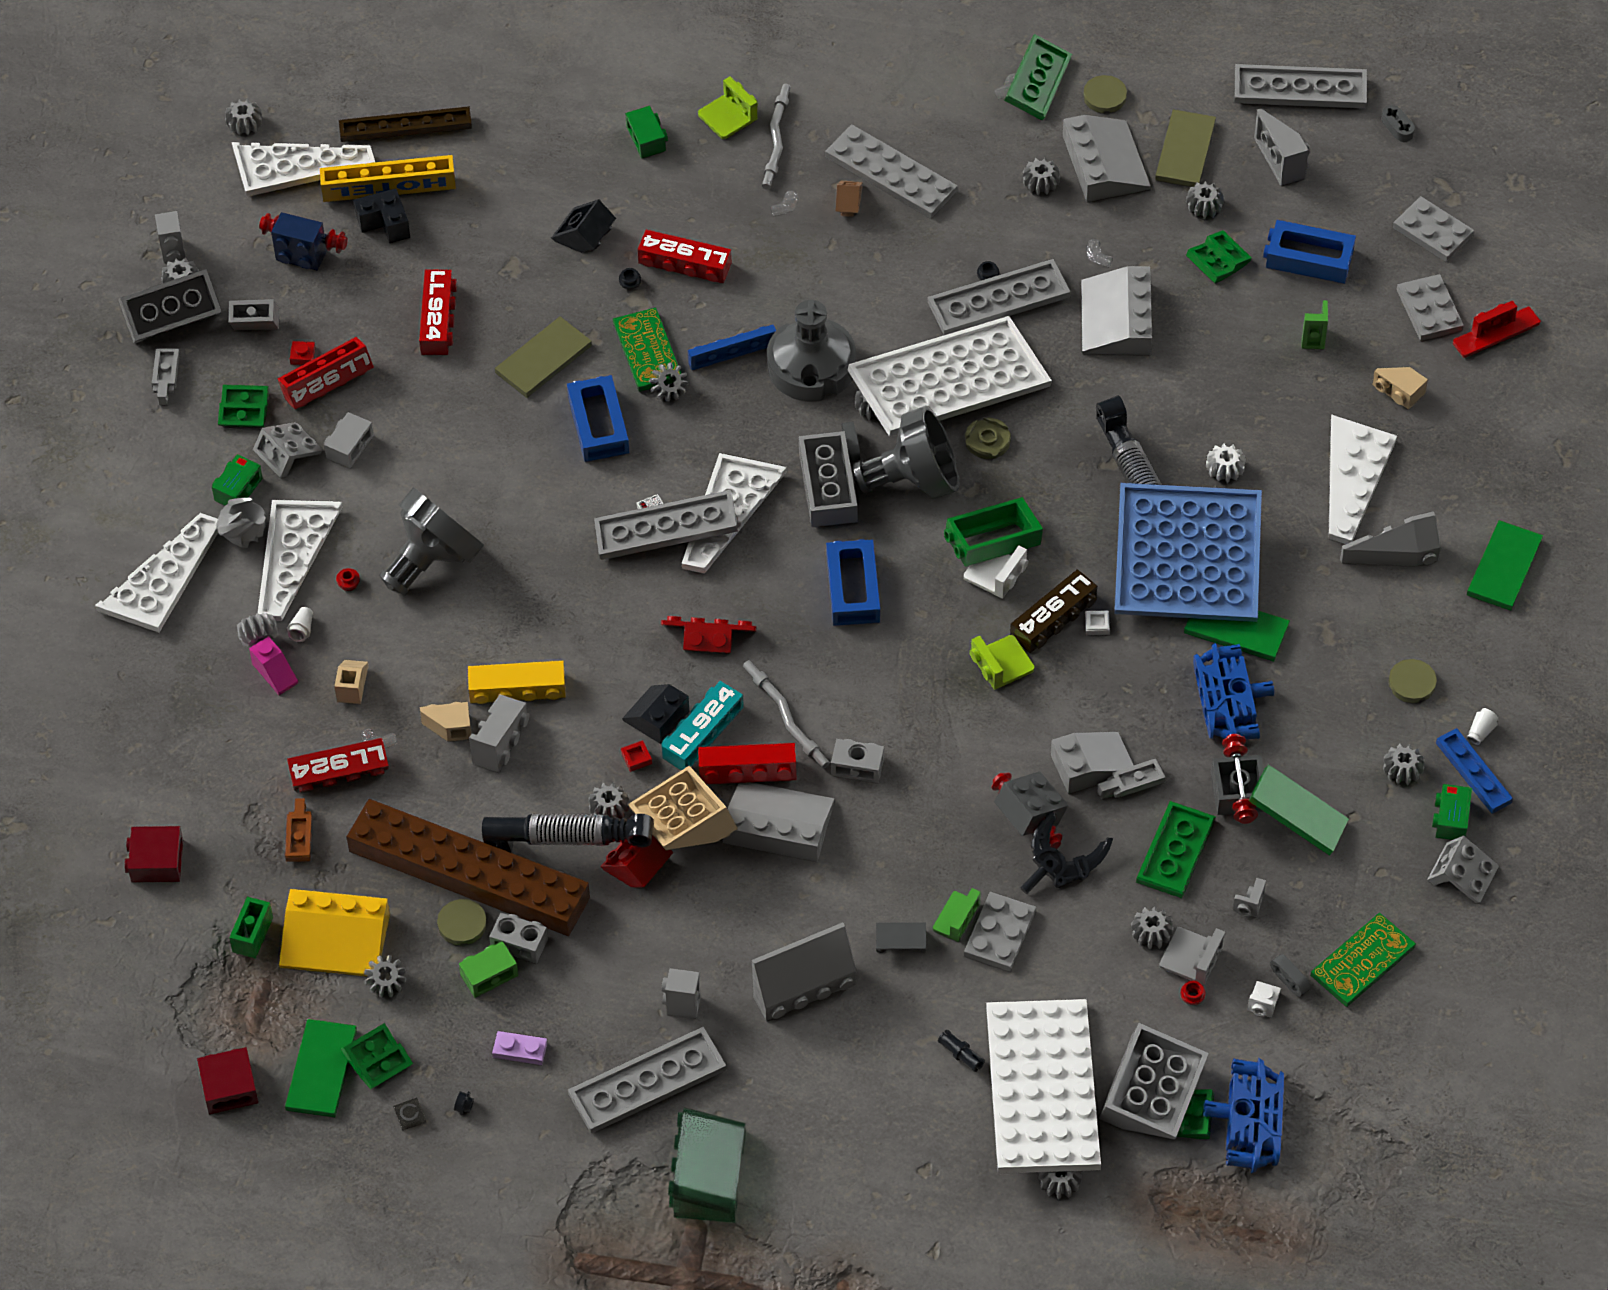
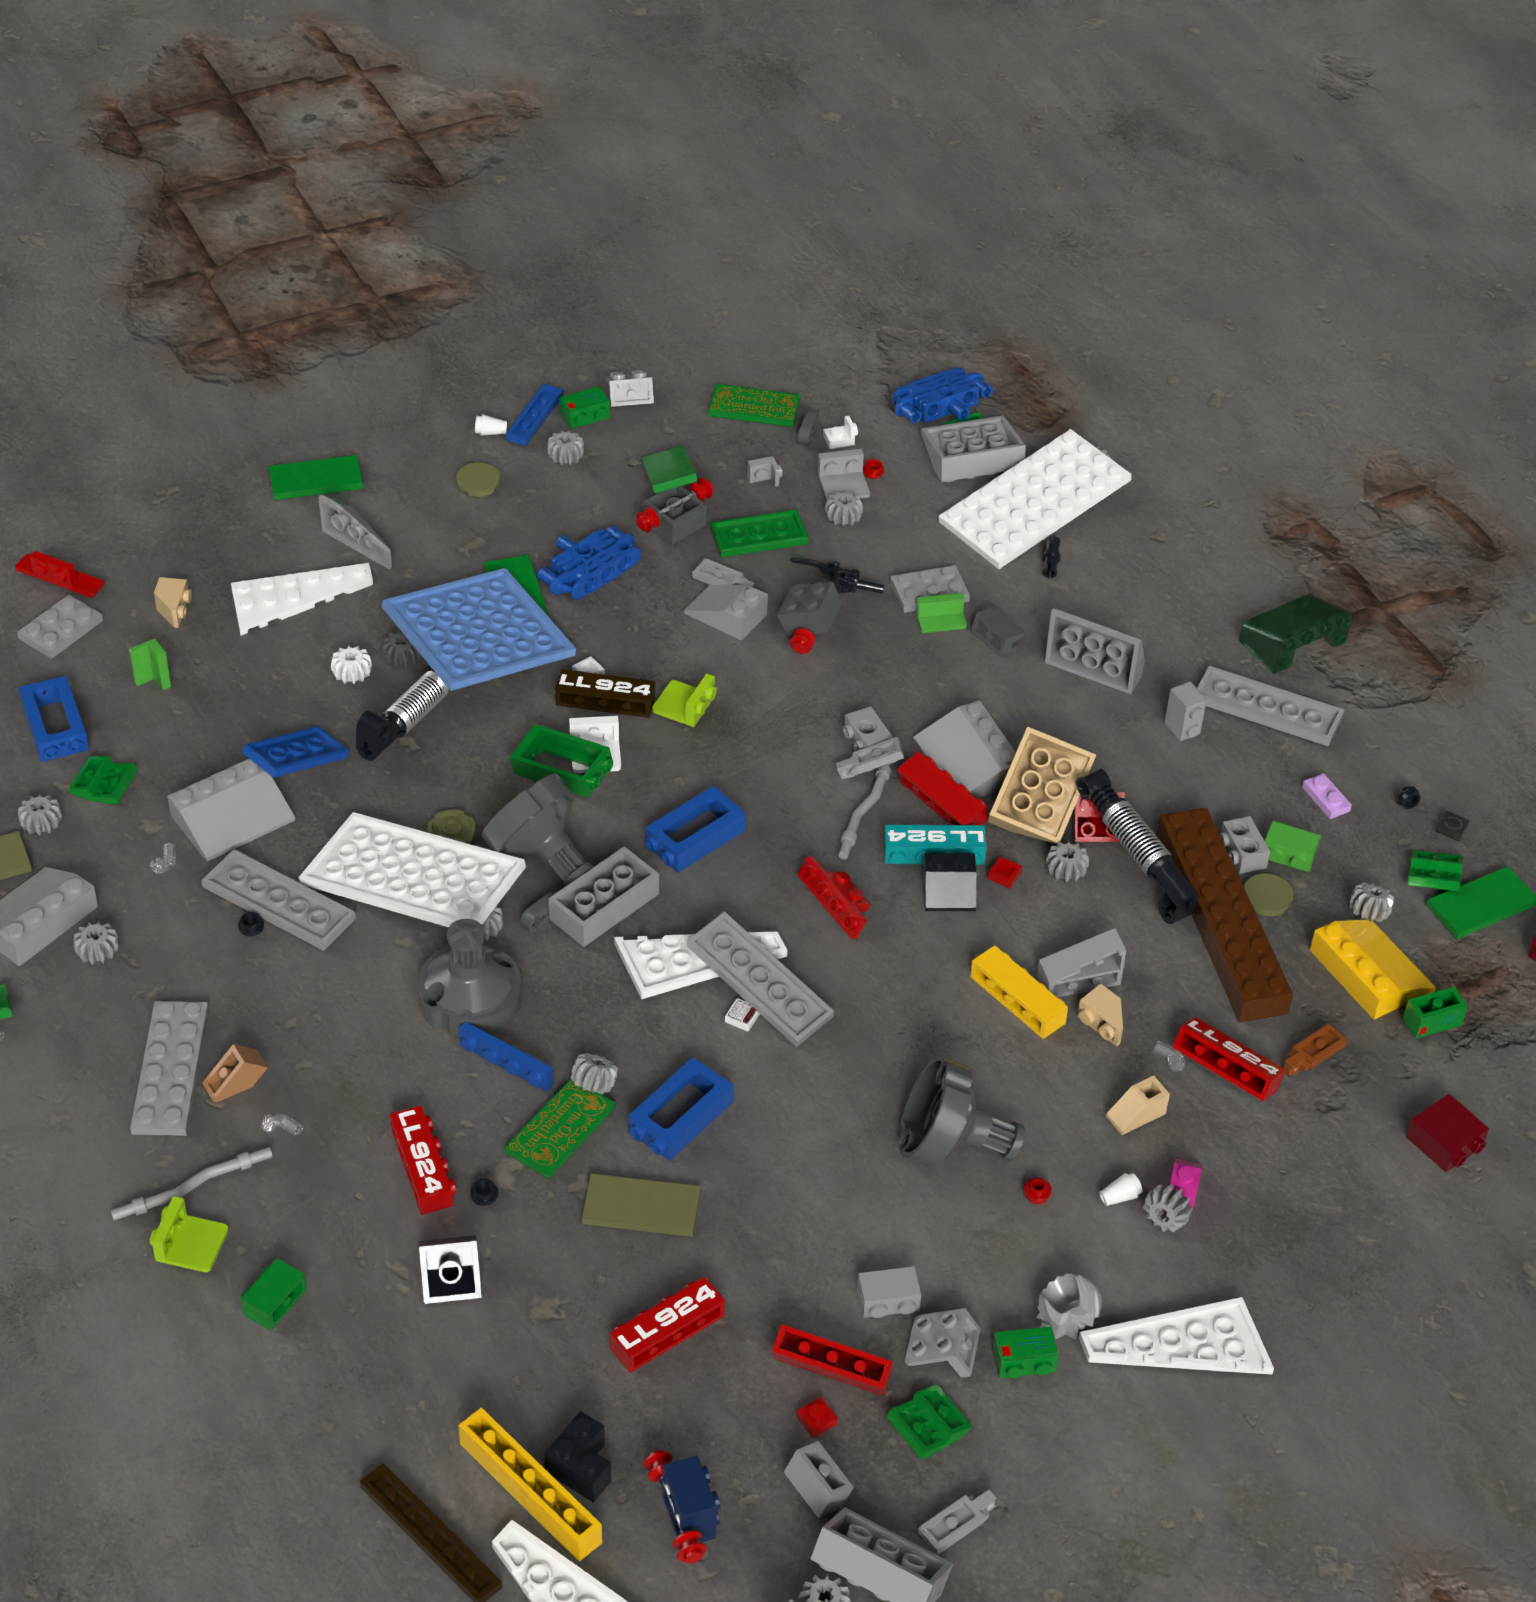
camera: 130 degrees left, 10 degrees down
(292, 545) = (1033, 1258): white wing -> none
(822, 738) = (871, 758): none -> light grey hinge
(1142, 370) = (295, 751): none -> blue tile

